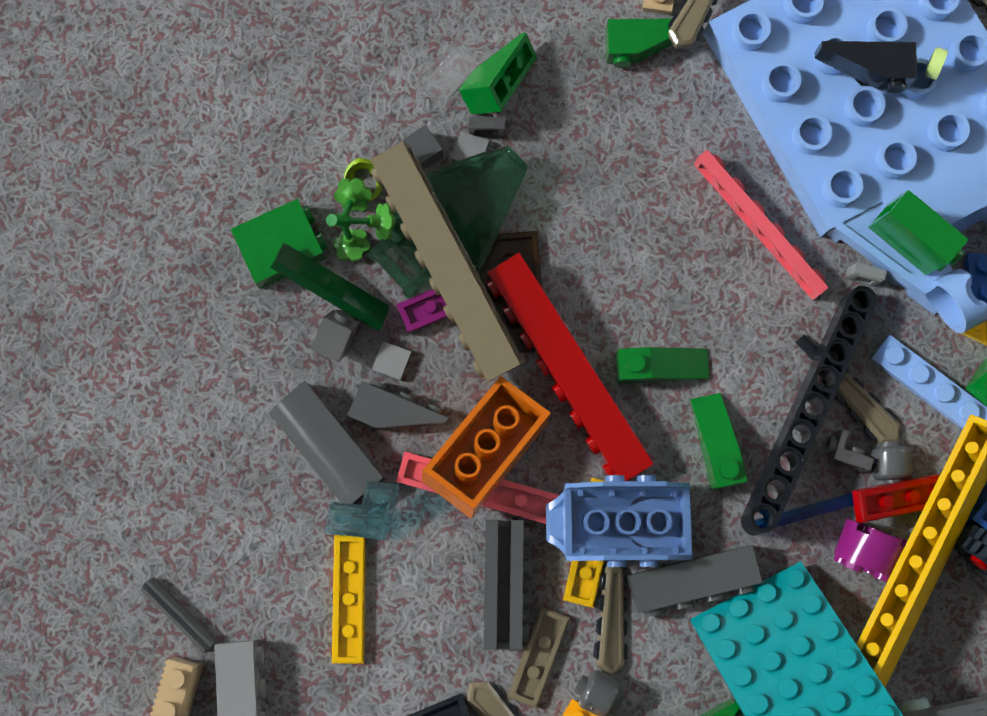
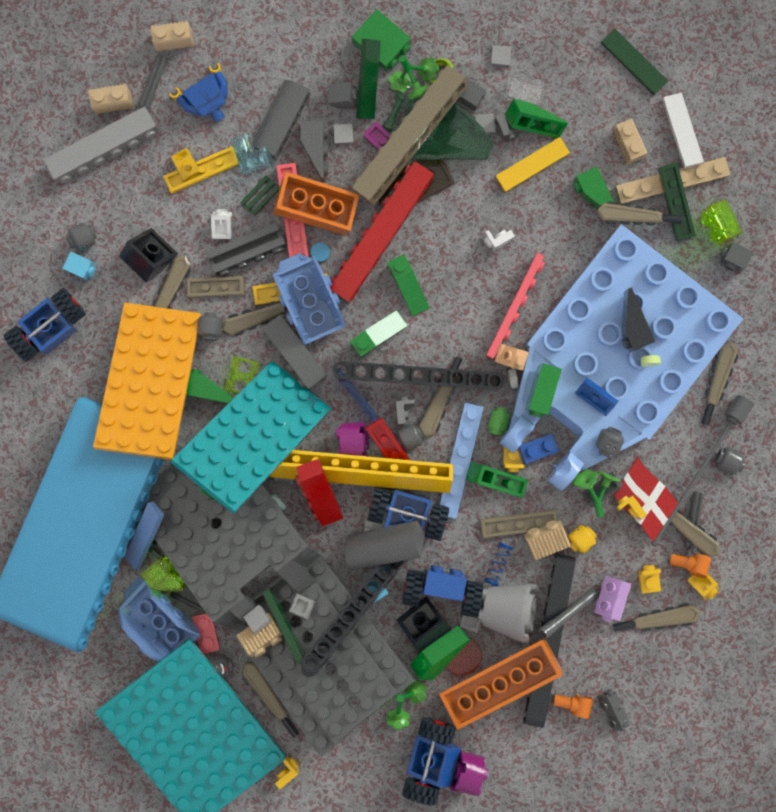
camera: 65 degrees right, 5 degrees up
(123, 554) = (172, 36): none -> tan brick
(239, 543) = (205, 95): none -> blue torso
(328, 620) = (185, 163): none -> yellow bracket
(380, 84) = (501, 56): none -> light grey tile
(439, 551) = (270, 184): none -> dark green tile
(447, 605) = (221, 224): none -> white bracket
(555, 473) = (320, 251): none -> dark azure tile
(560, 110) = (532, 164): none -> yellow tile
(653, 199) = (501, 239): none -> white bracket
(687, 684) = (236, 374): none -> clear neon green piece
(838, 259) = (511, 356): none -> light nougat brick
(921, 321) = (499, 421): none -> bright green brick
(937, 637) = (319, 492): none -> red brick
(953, 163) = (596, 396): none -> blue plate

